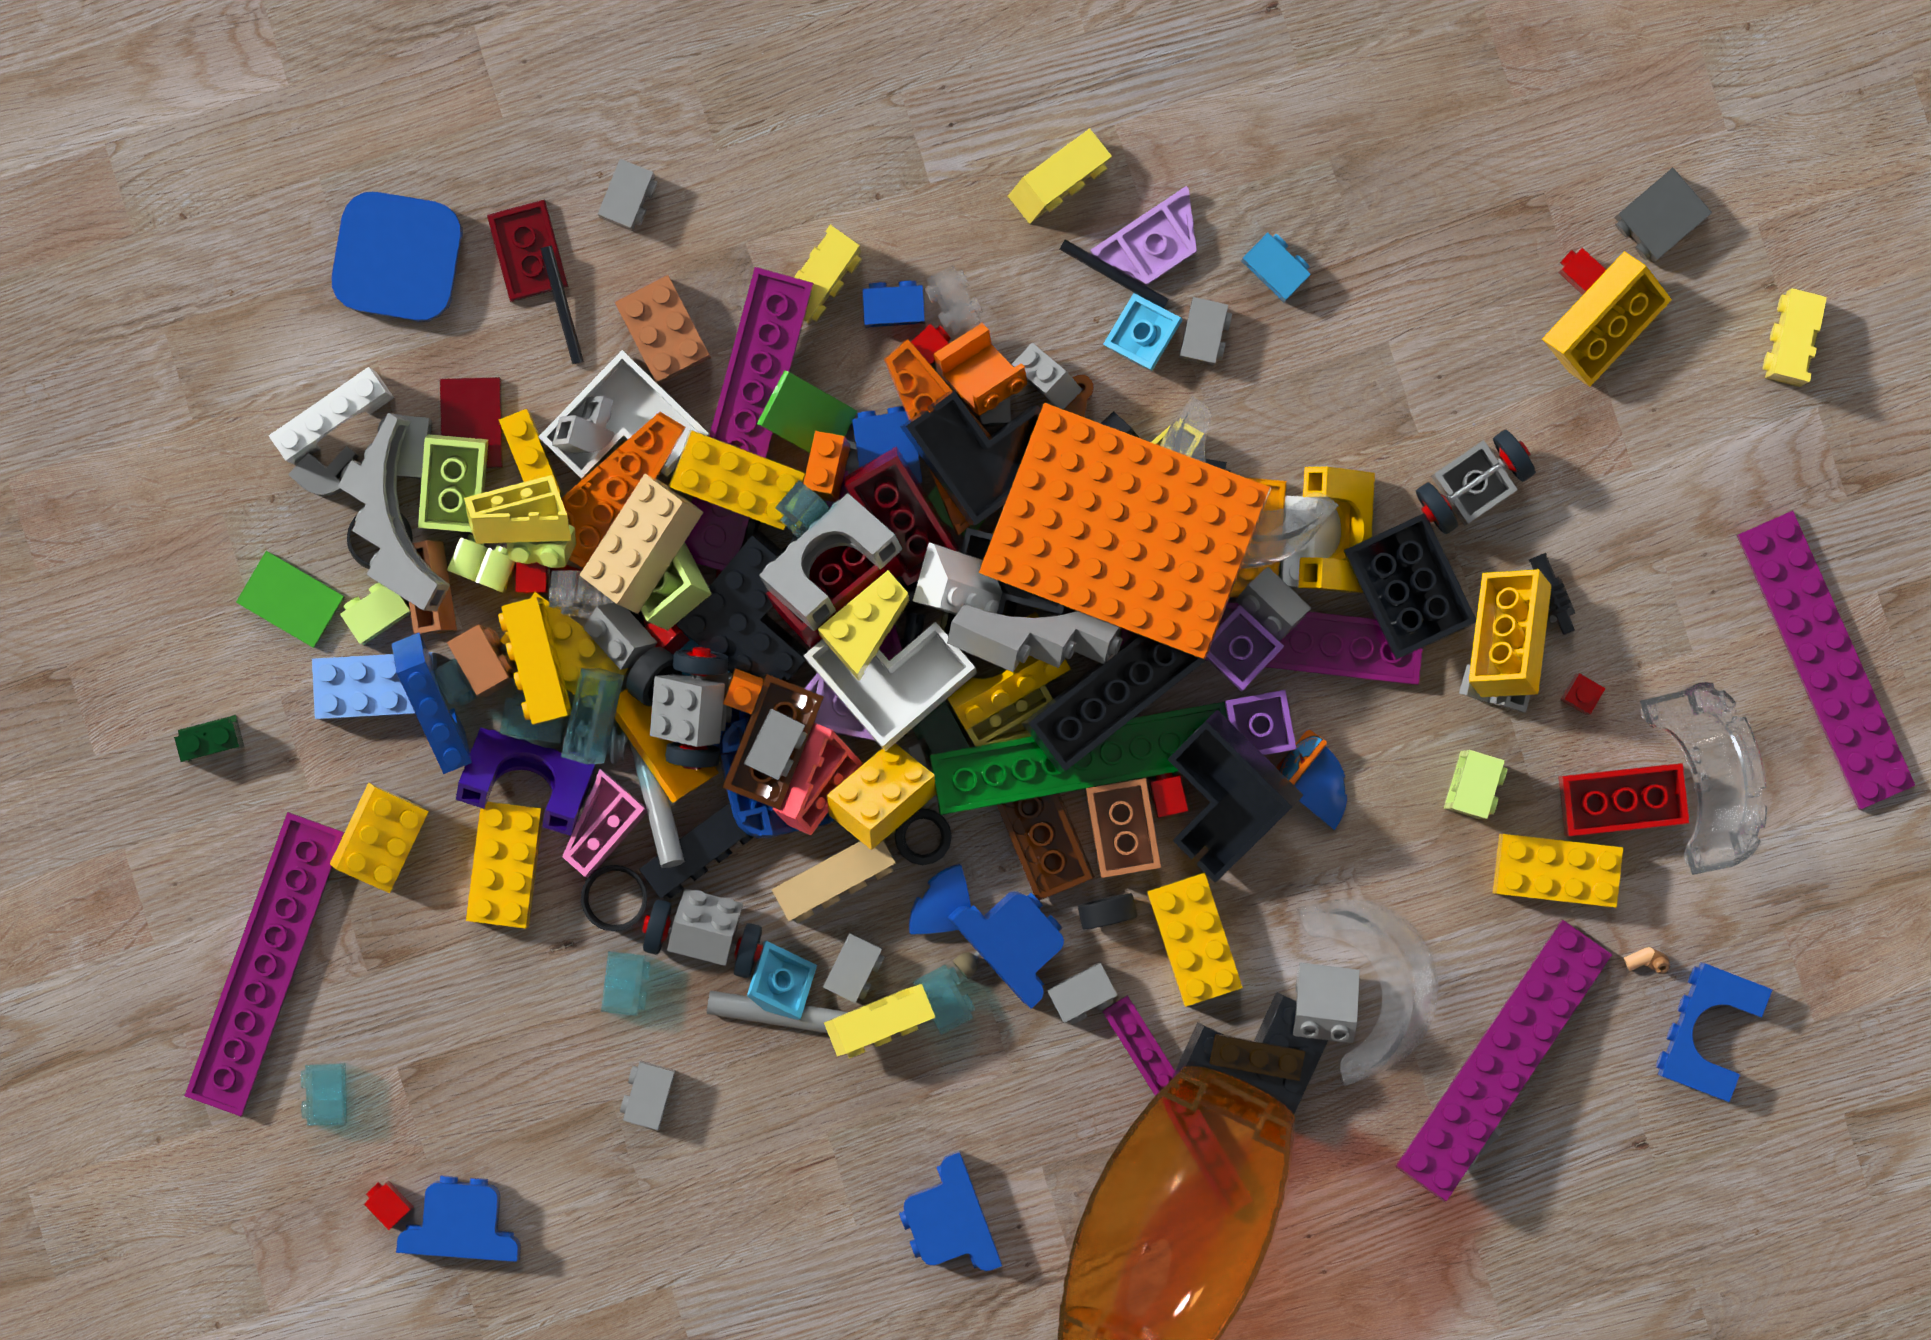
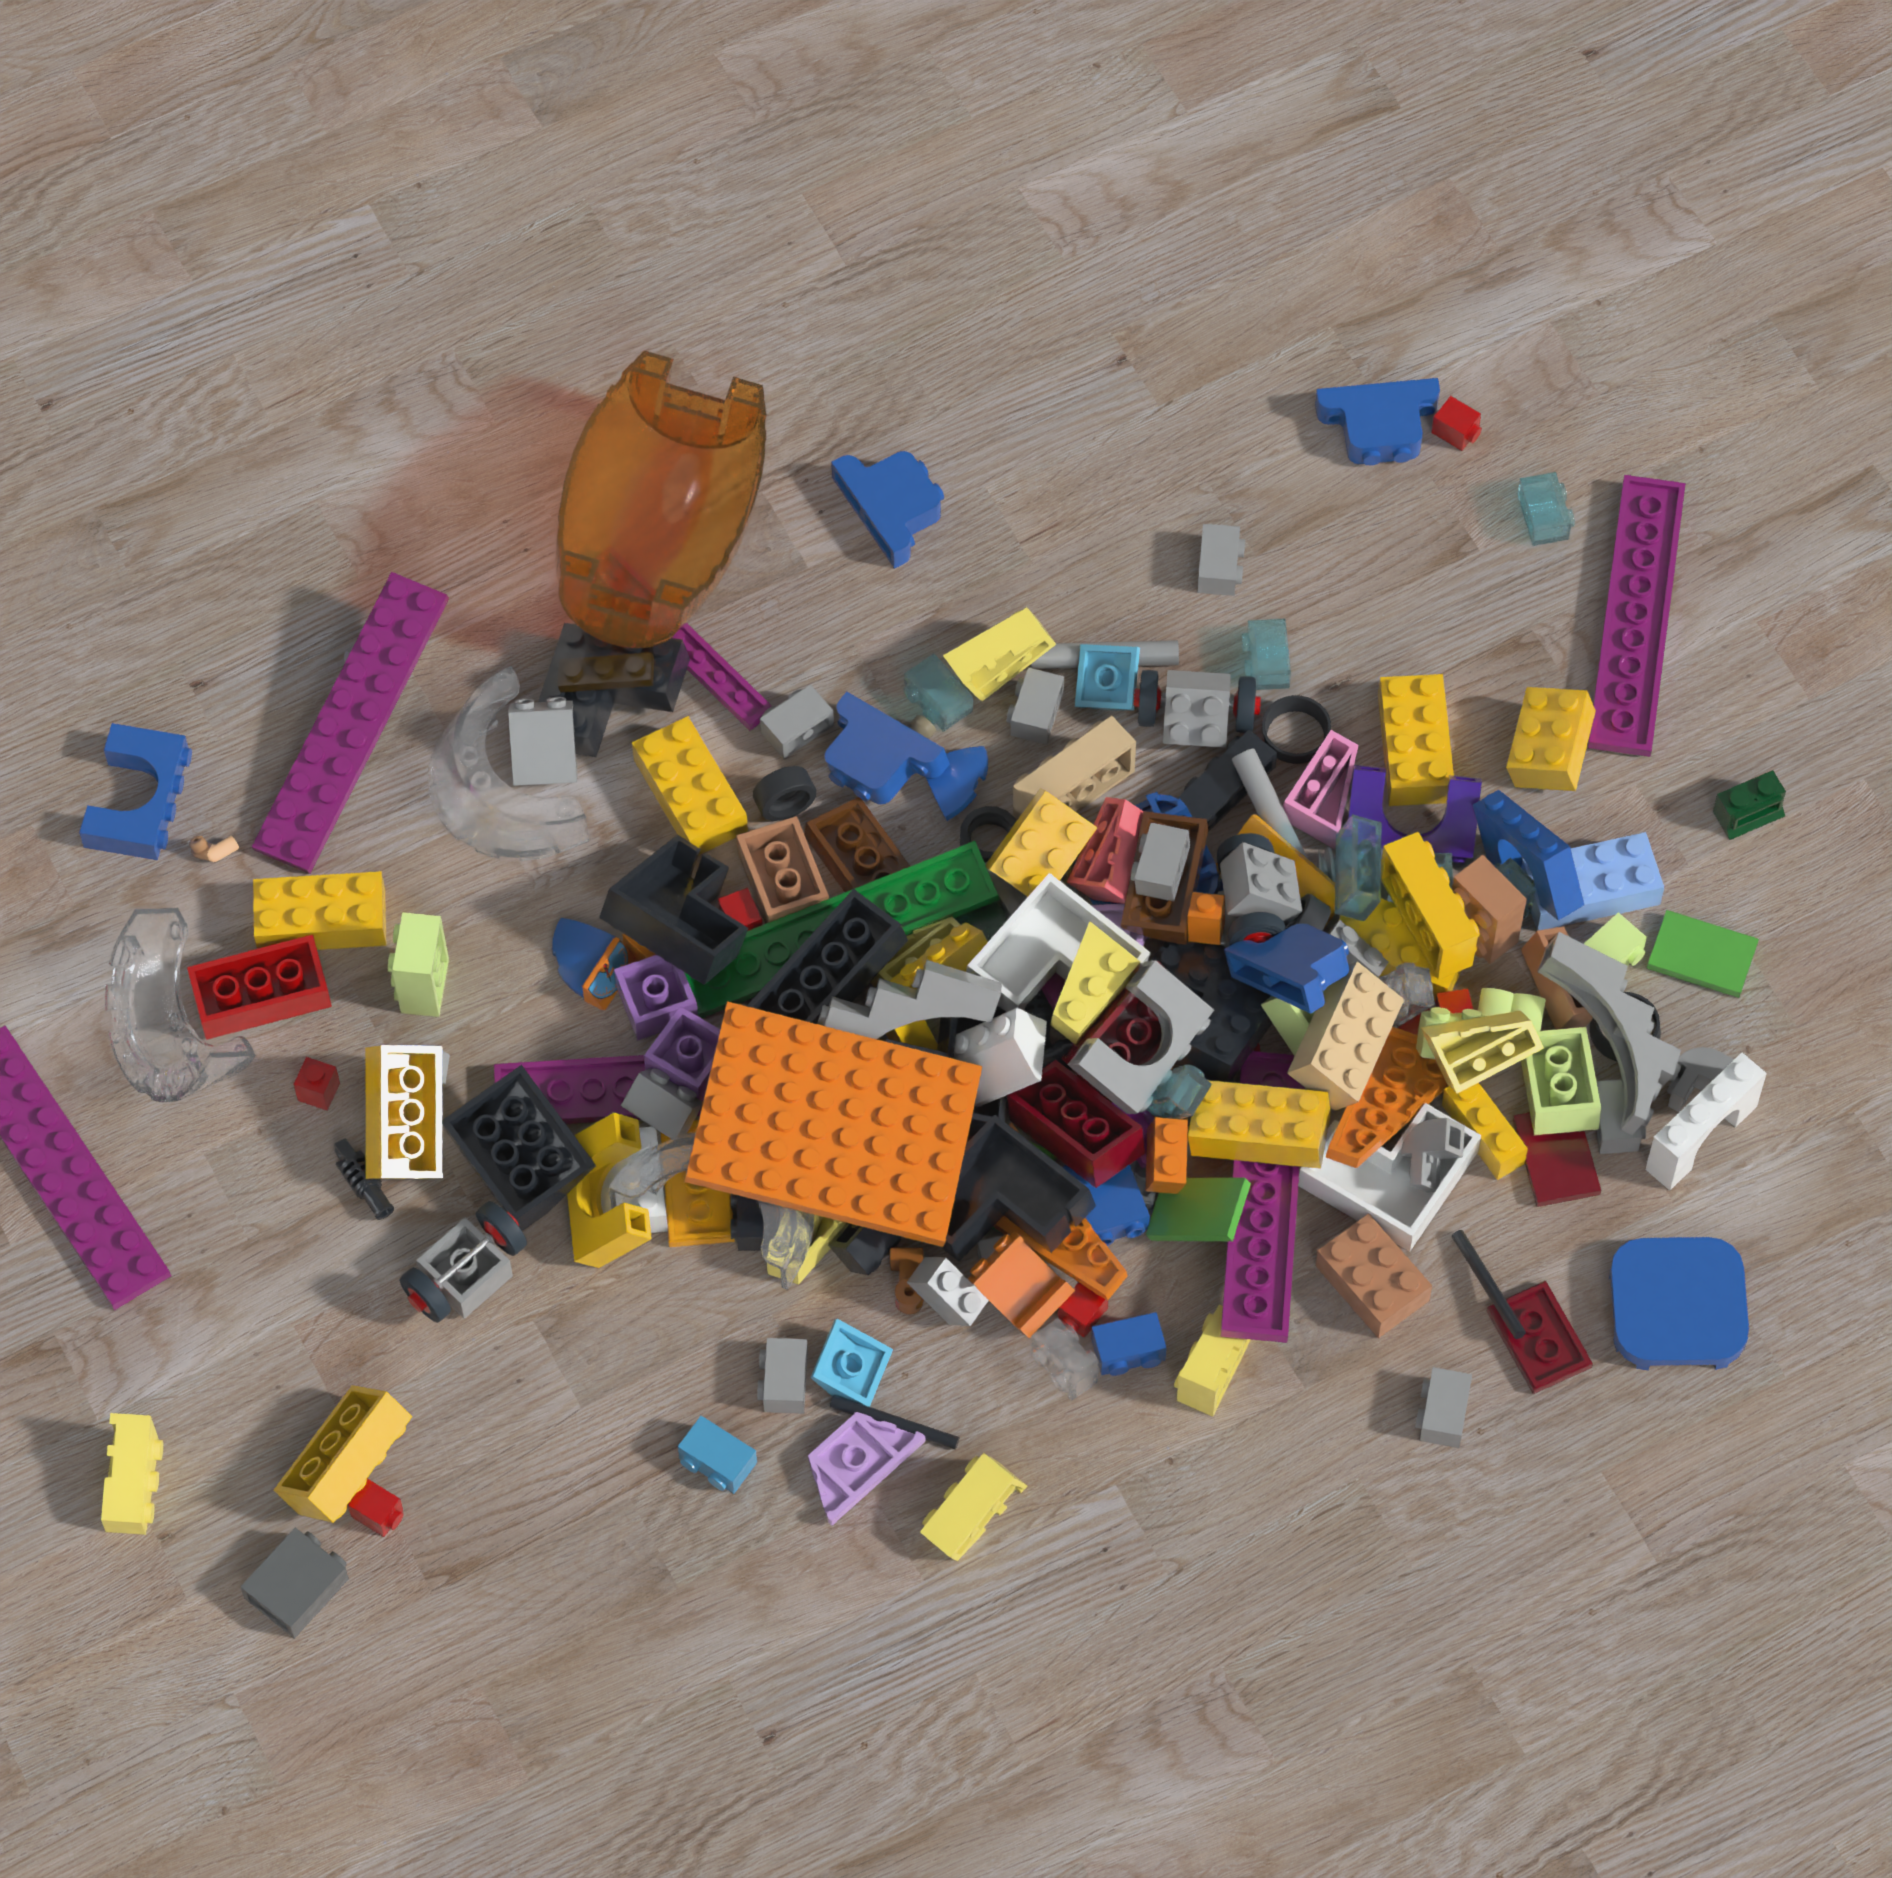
camera: 165 degrees right, 25 degrees down
(675, 612) = (1291, 965): none -> blue brick

